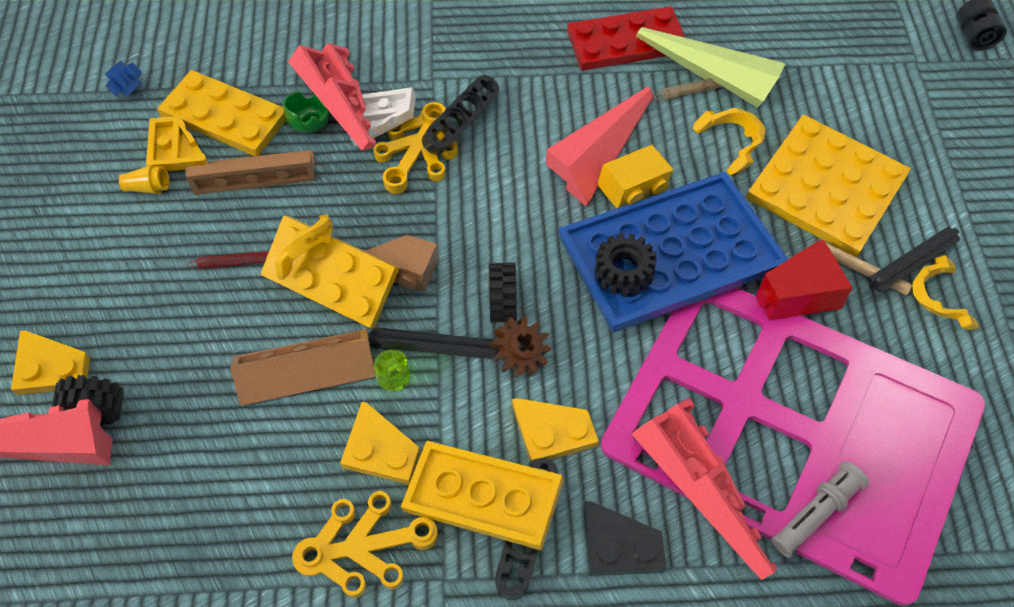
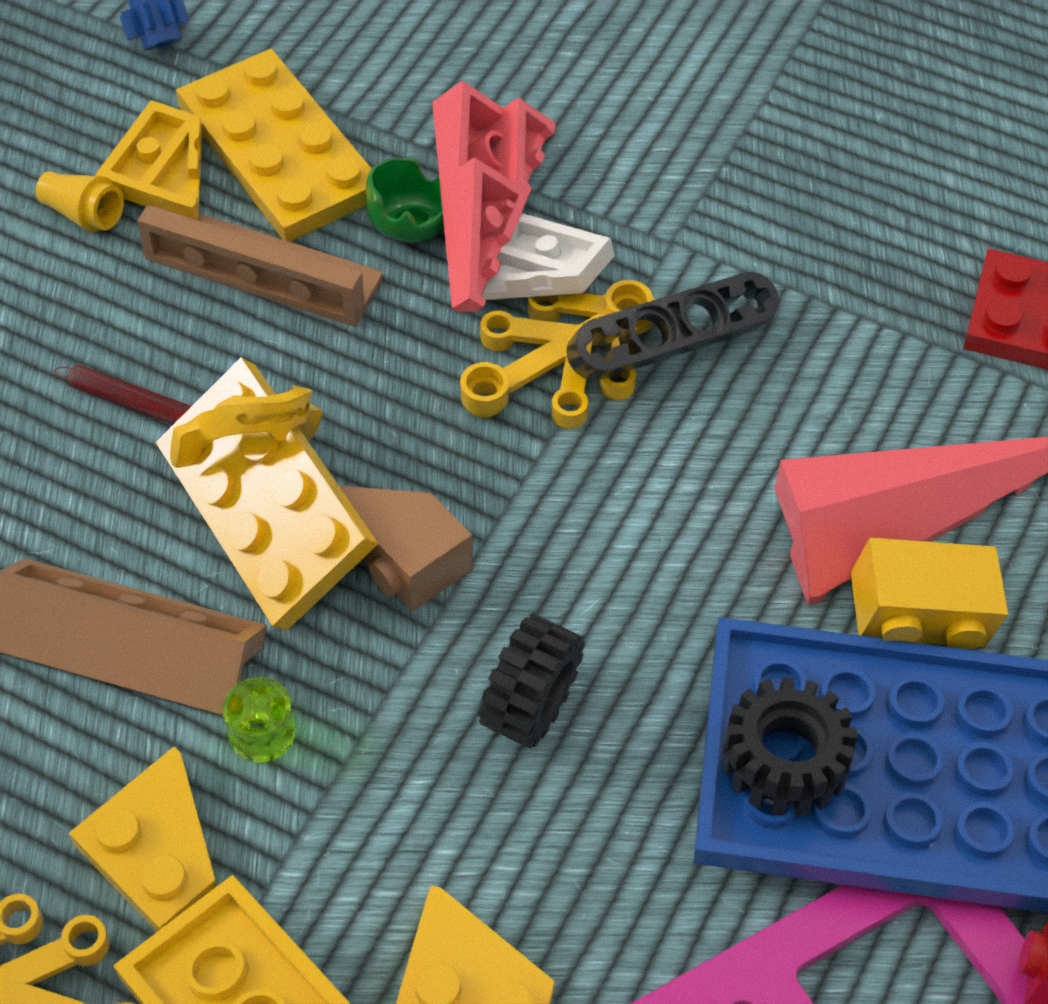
camera: 30 degrees right, 5 degrees down
(432, 343) = (369, 714): black axle -> none
(509, 341) = (481, 783): reddish brown gear -> none

